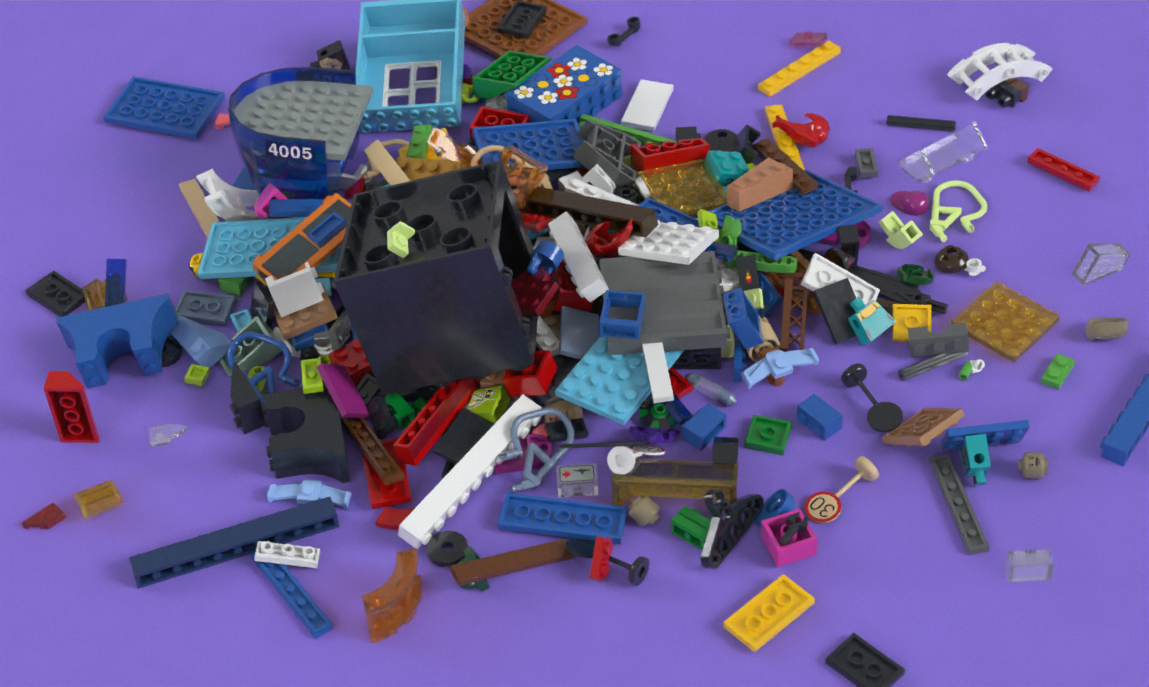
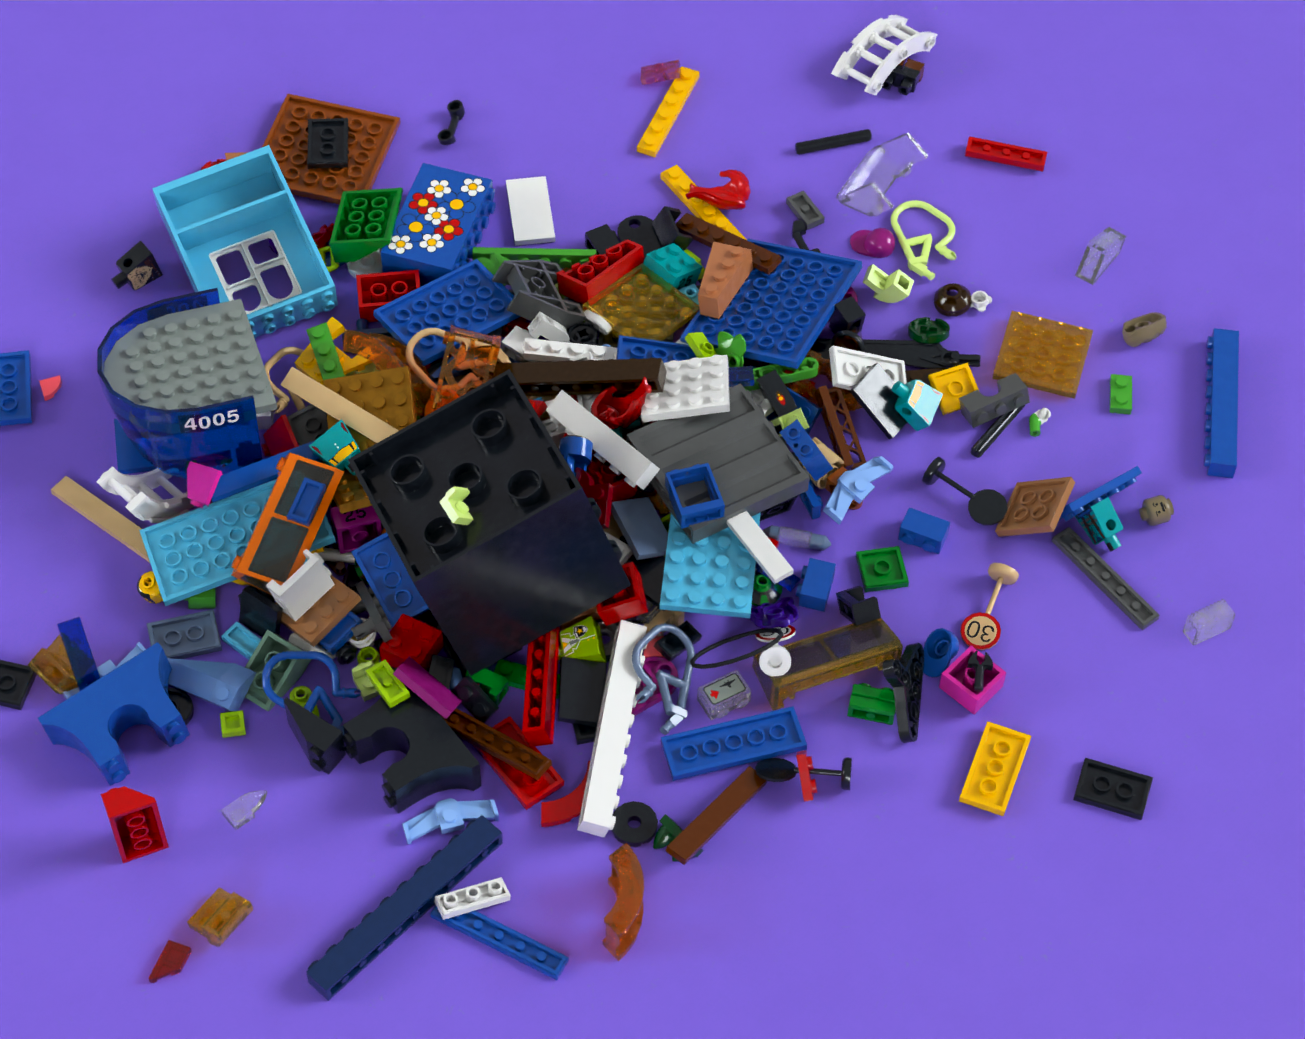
camera: 30 degrees left, 10 degrees up
(644, 510) = (812, 704): dark tan head -> none

